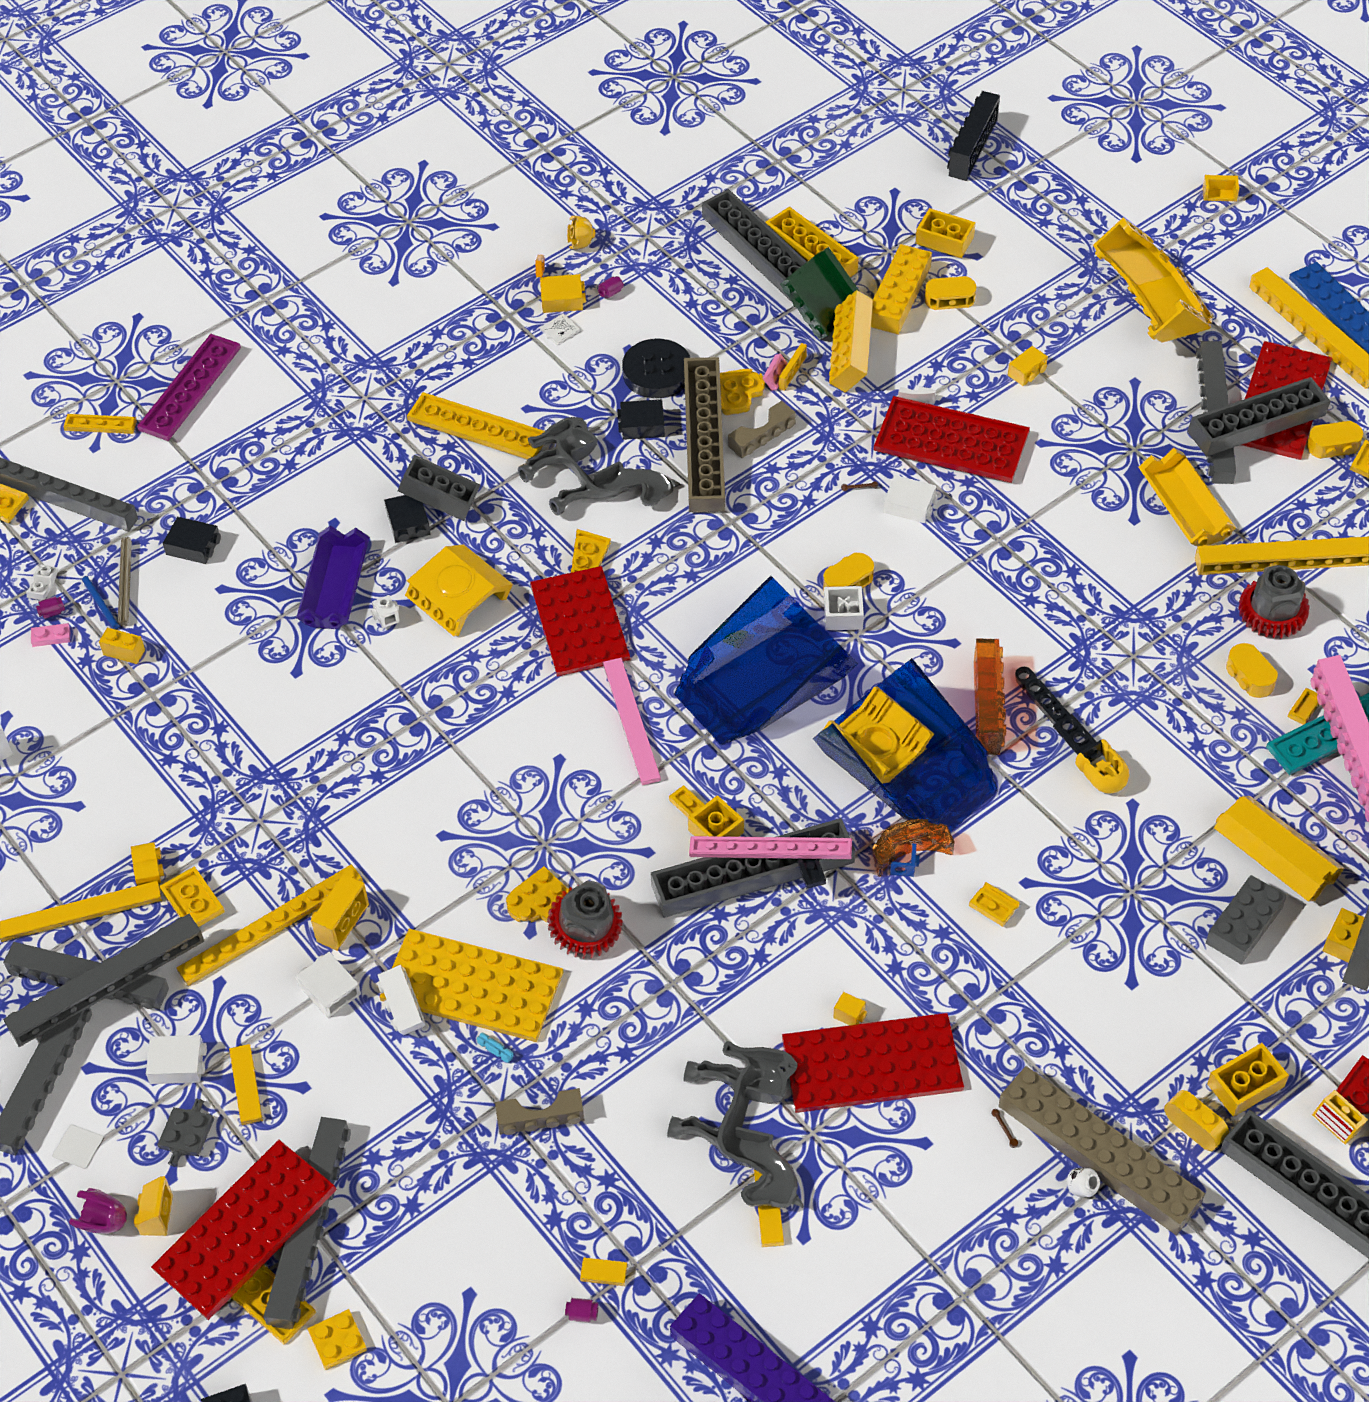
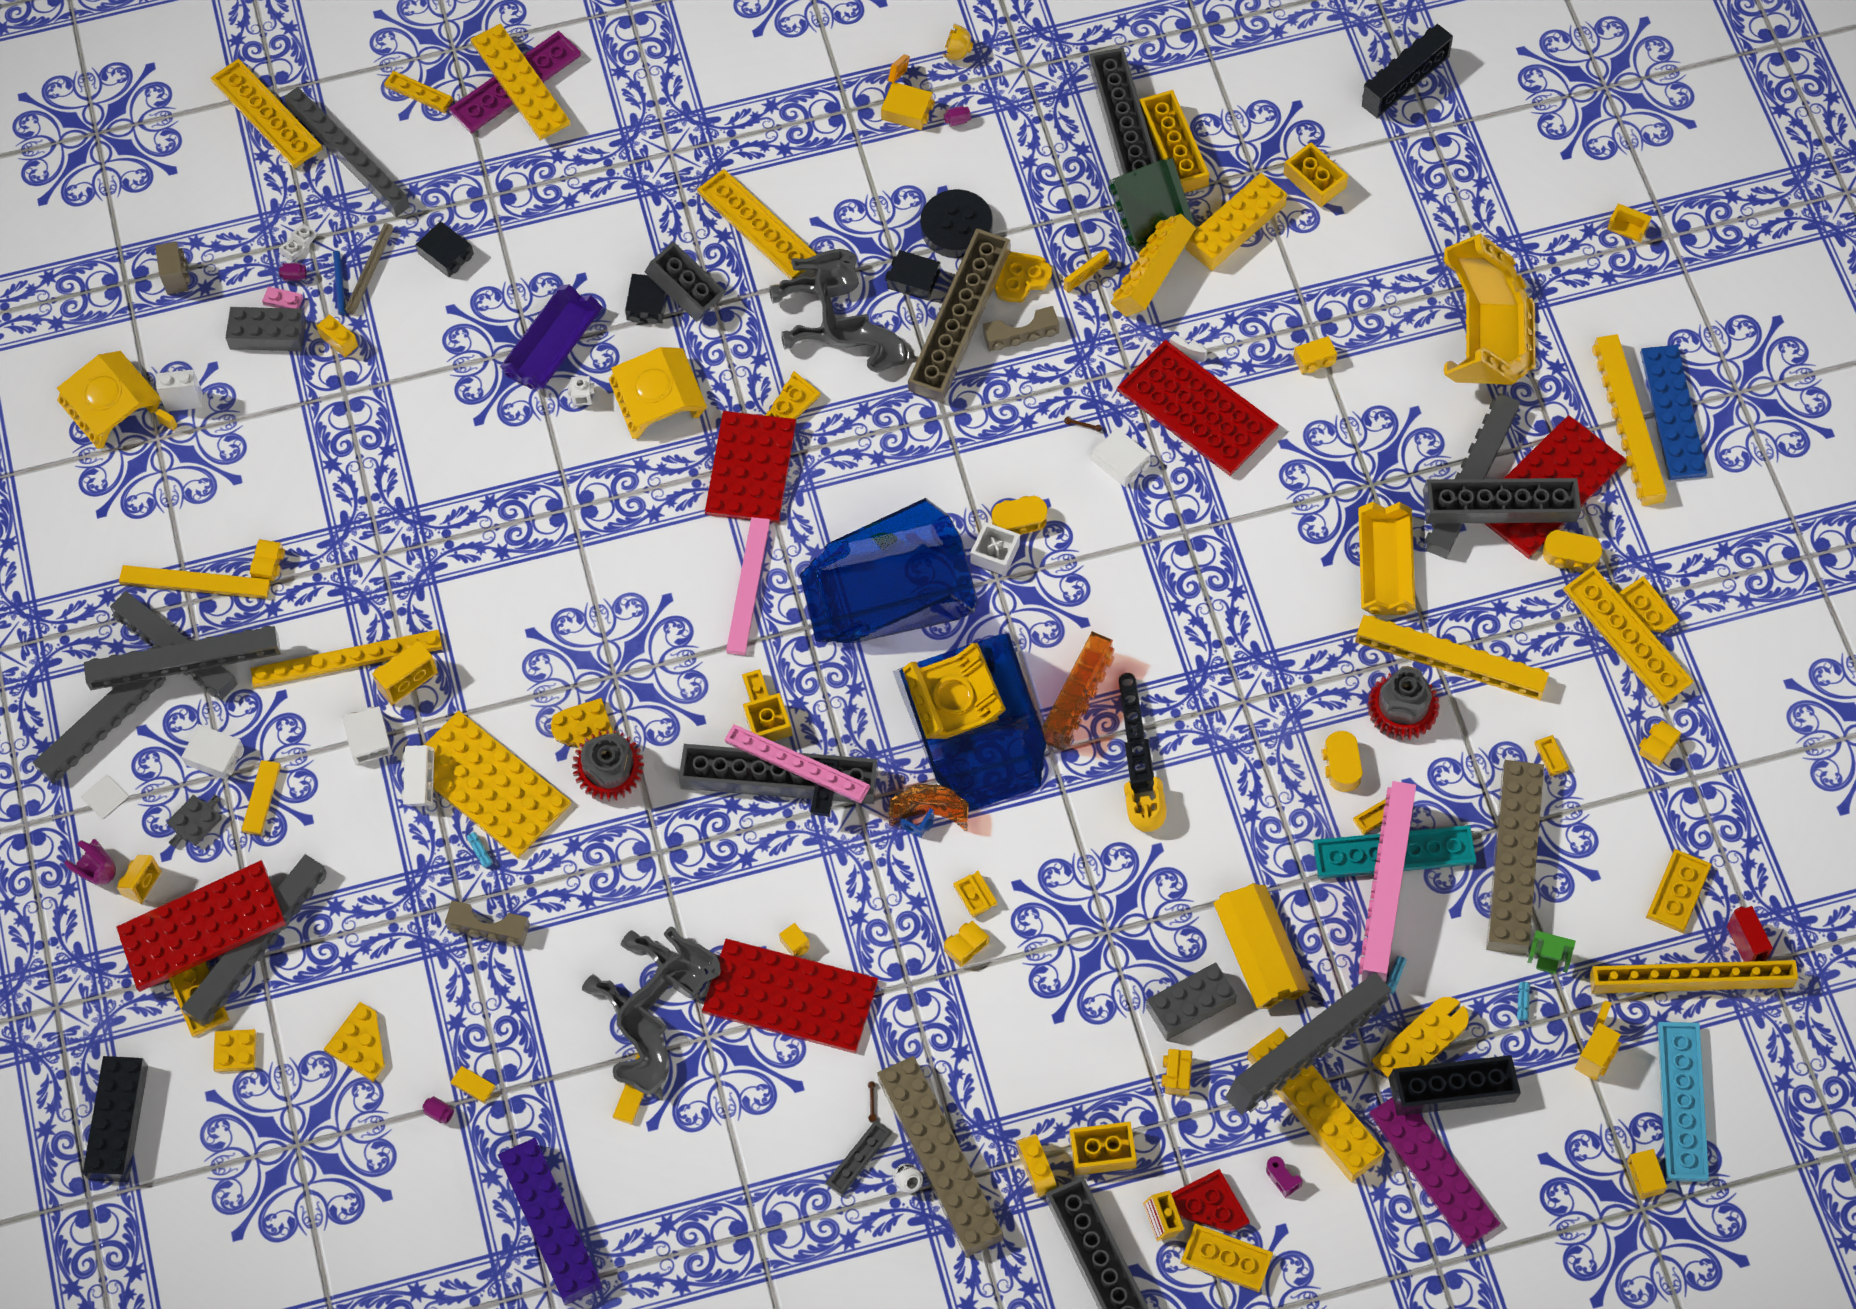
camera: 25 degrees right, 10 degrees up
(46, 663) = (265, 329): none -> dark grey brick
(192, 895) = (291, 608): yellow plate -> none
(196, 383) = (520, 81): none -> yellow plate
(465, 1279) = (359, 1043): none -> yellow plate
(560, 329) = (888, 144): white piece -> none
(774, 370) = (1067, 267): bright pink plate -> none
(950, 293) = (1285, 244): yellow brick -> none
(1011, 950) = (966, 943): none -> yellow brick
(1022, 1185) = (858, 1158): none -> dark grey tile
(1272, 985) = (1178, 1072): none -> yellow brick

